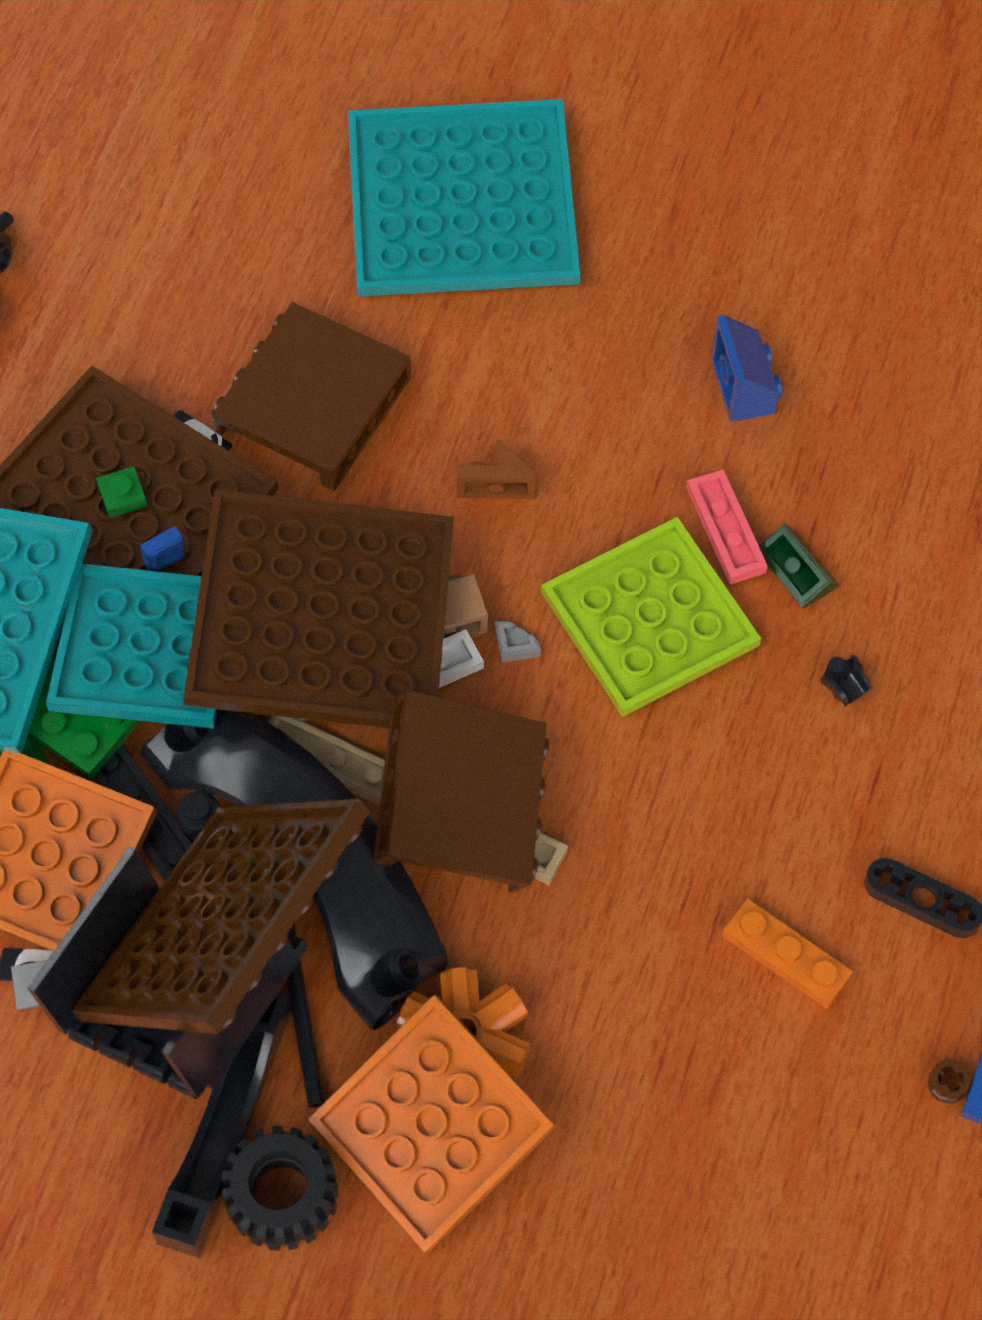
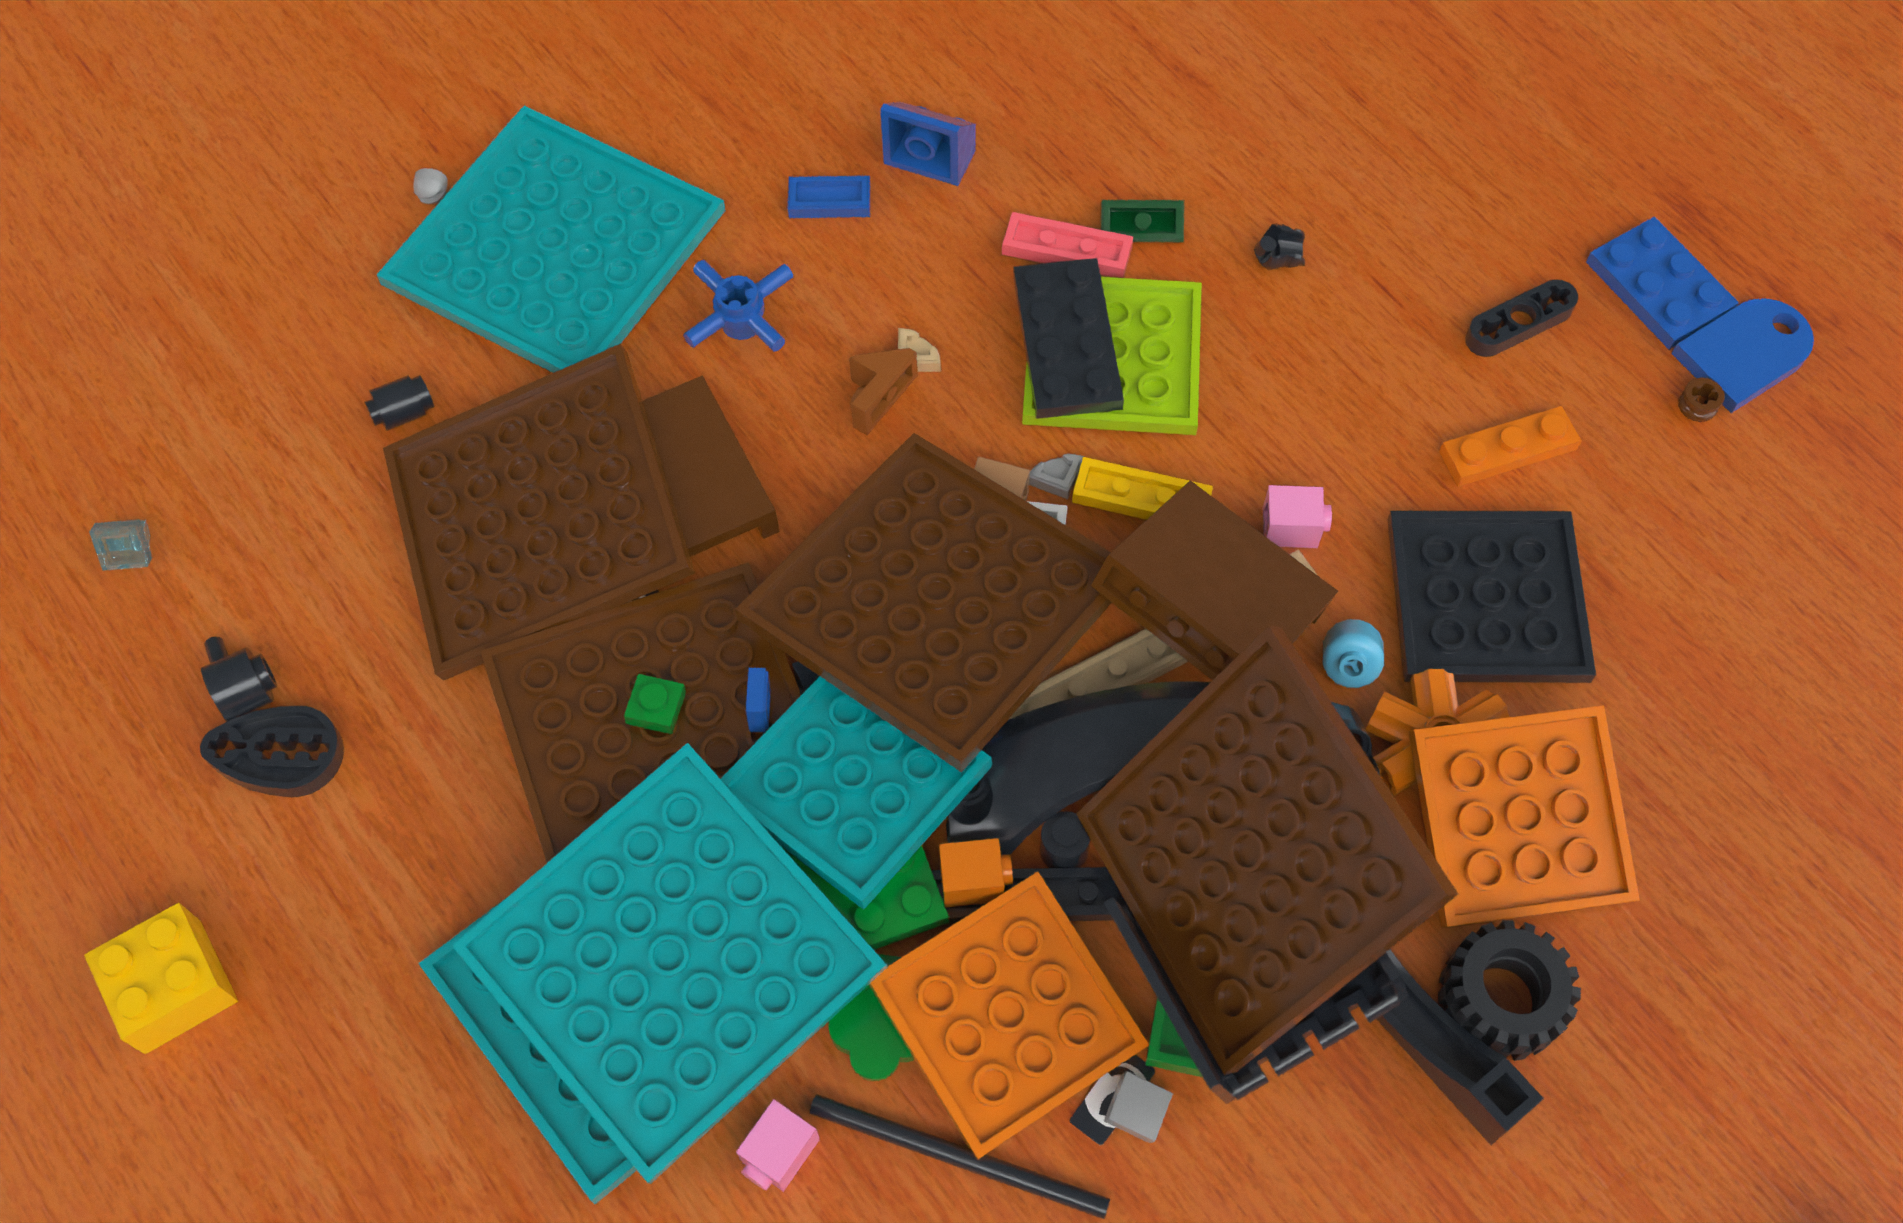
camera: 55 degrees left, 0 degrees up
(39, 116) = (122, 544): none -> clear light blue tile
(130, 767) = (973, 872): none -> orange brick
(226, 327) = (535, 510): none -> reddish brown plate
(259, 194) = (399, 402): none -> black brick
(449, 91) = (430, 185): none -> light grey hinge
(493, 343) = (738, 306): none -> blue bar
(494, 929) = (1353, 653): none -> medium azure head
(534, 700) = (1125, 488): none -> yellow plate
(551, 484) = (927, 355): none -> tan tile
(592, 825) = (1295, 516): none -> bright pink brick
(626, 1007) = (1490, 596): none -> black plate
(630, 573) = (1067, 338): none -> black plate
(647, 342) = (829, 196): none -> blue tile

